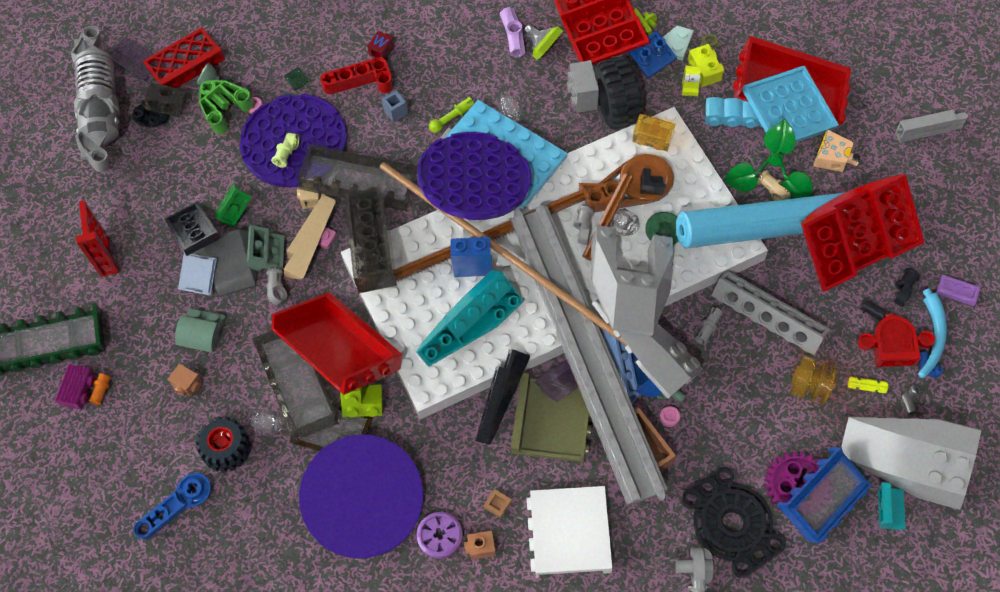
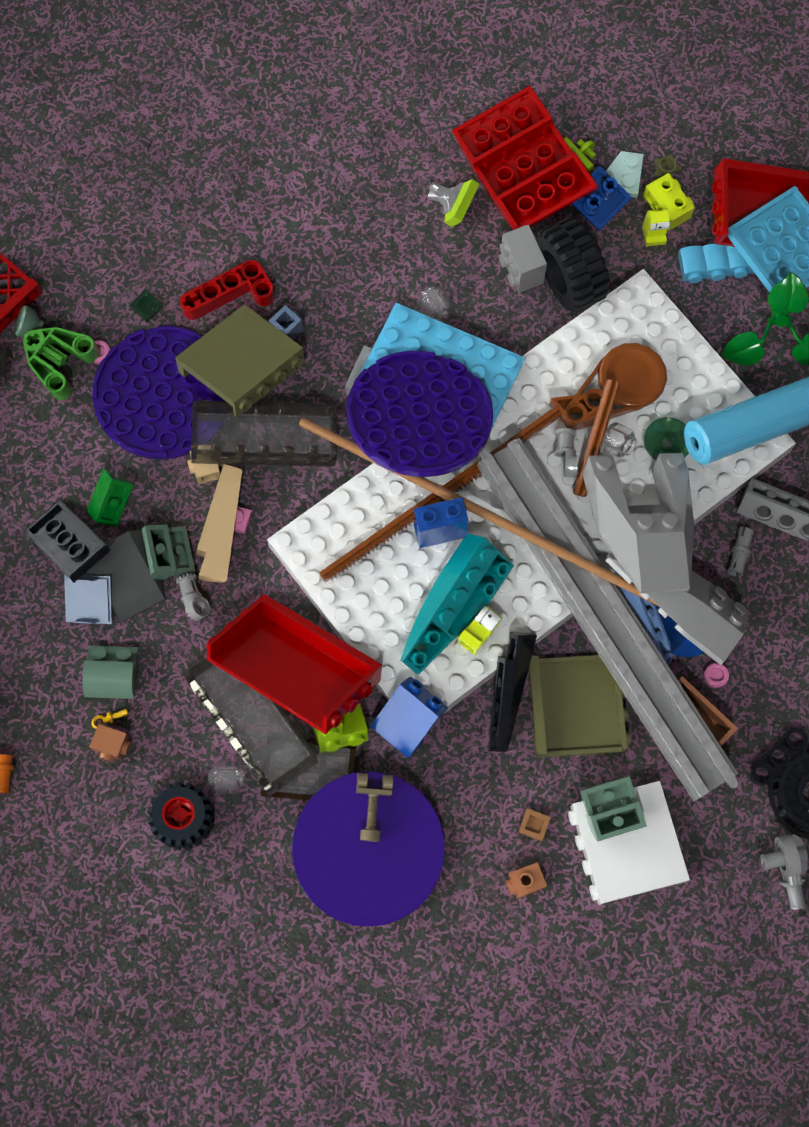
camera: 15 degrees left, 10 degrees up
(176, 503) = (142, 899): blue beam -> none
(191, 363) = (110, 717): none -> yellow hand
(285, 149) = (157, 411): yellowish green connector -> none
(354, 122) = (242, 359): none -> olive panel
(364, 482) = (370, 833): none -> dark tan bar
(370, 240) = (305, 521): clear smoke brick -> none
(381, 45) = (246, 241): dark red brick -> none
(415, 399) = (409, 716): none -> panel
(428, 529) = (488, 881): medium lavender wheel -> none
(436, 125) = (343, 340): lime pin -> none
(485, 343) = (479, 630): none -> neon yellow leg
(514, 32) = (419, 204): lavender piece -> none
(558, 382) = (575, 658): clear purple piece -> none
(559, 497) = (612, 808): none -> sand green brick
(651, 184) = (642, 385): black panel -> none
(653, 132) = (628, 312): clear yellow brick -> none
(773, 185) = (790, 360): tan connector -> none

